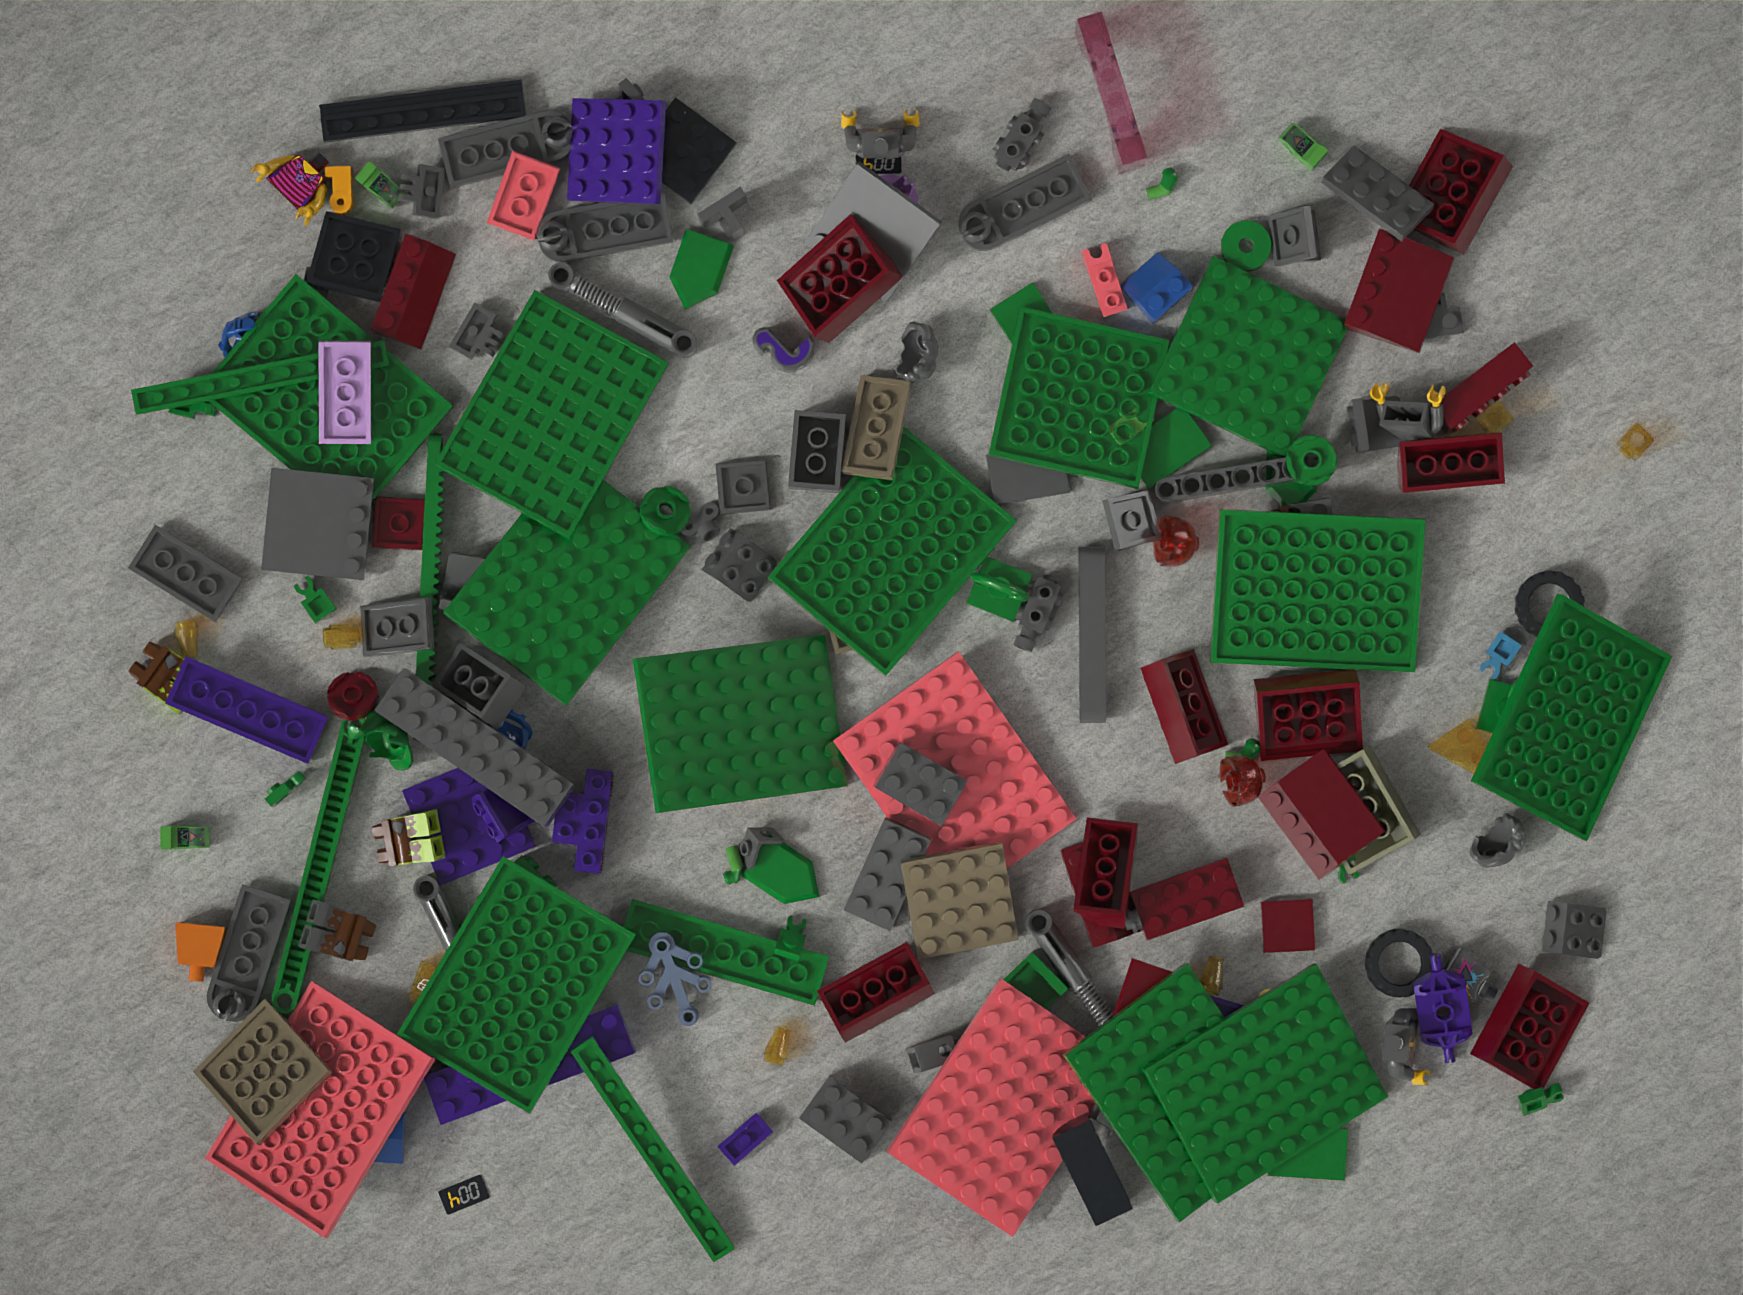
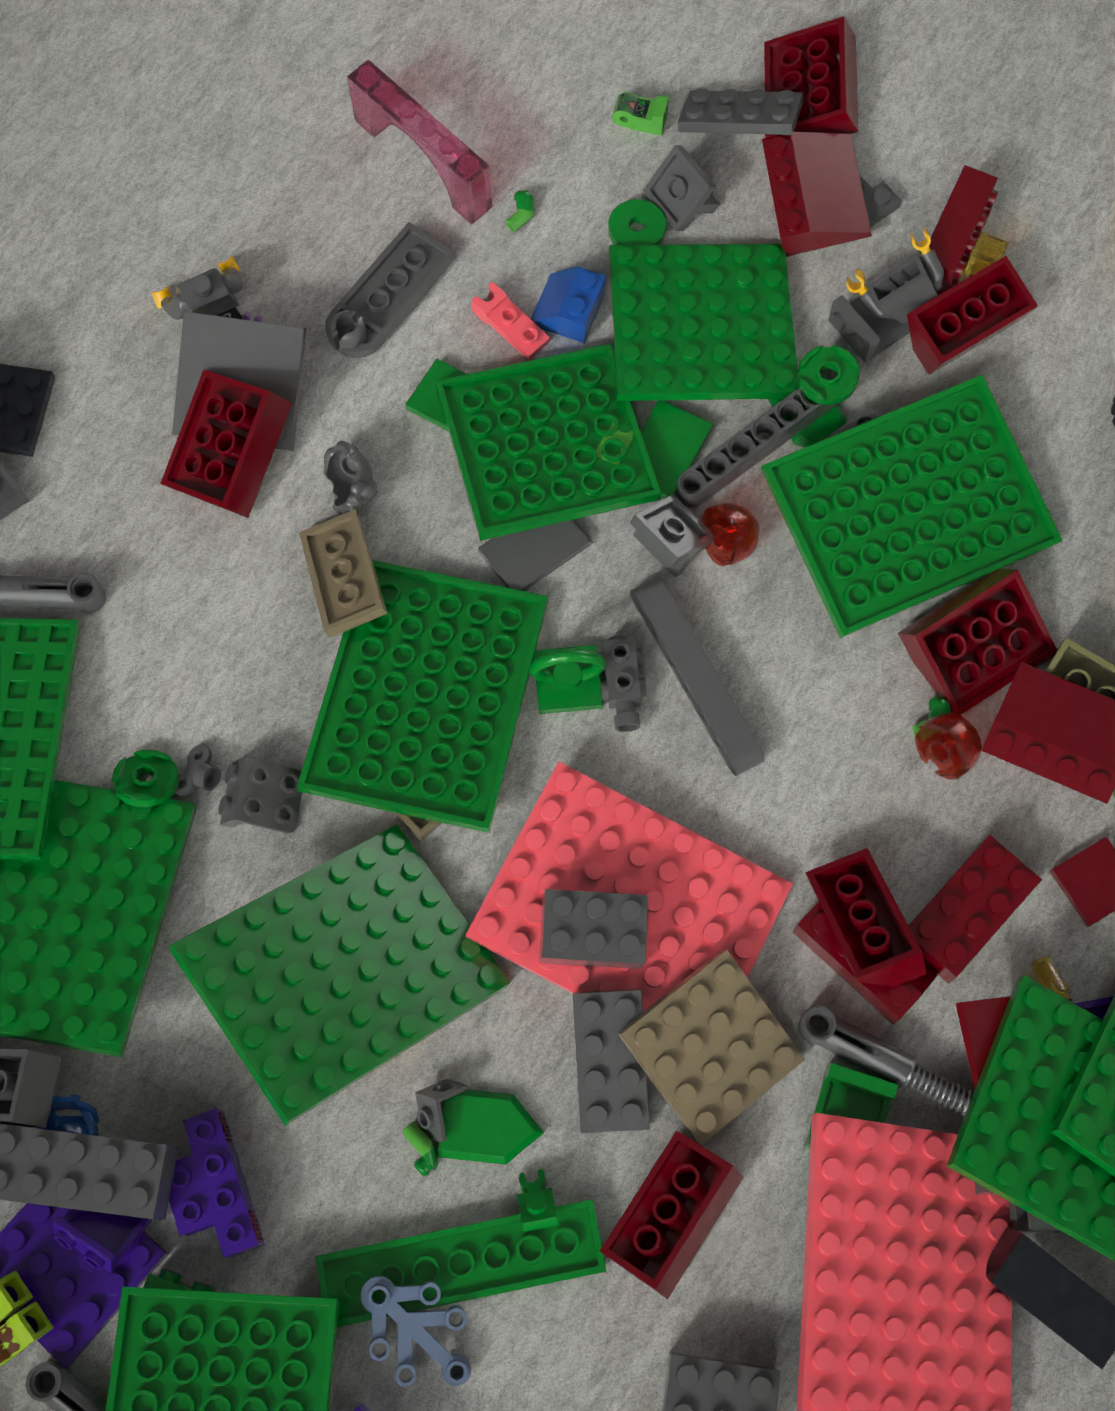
camera: 25 degrees left, 15 degrees down
(699, 267) = (69, 511): green tile -> none
(723, 212) = (67, 437): dark grey bracket -> none
(743, 486) = (225, 712): dark grey tile -> none
(777, 1047) = (587, 1351): clear yellow cone -> none
(781, 356) = (203, 554): animal -> none
(816, 451) = (288, 630): dark grey brick -> none
(927, 1054) = (776, 1259): dark grey torso -> none
(1019, 140) = (351, 226): dark grey brick -> none
(1133, 921) = (932, 964): dark grey plate -> none
(1184, 706) = (839, 700): dark red slope -> none

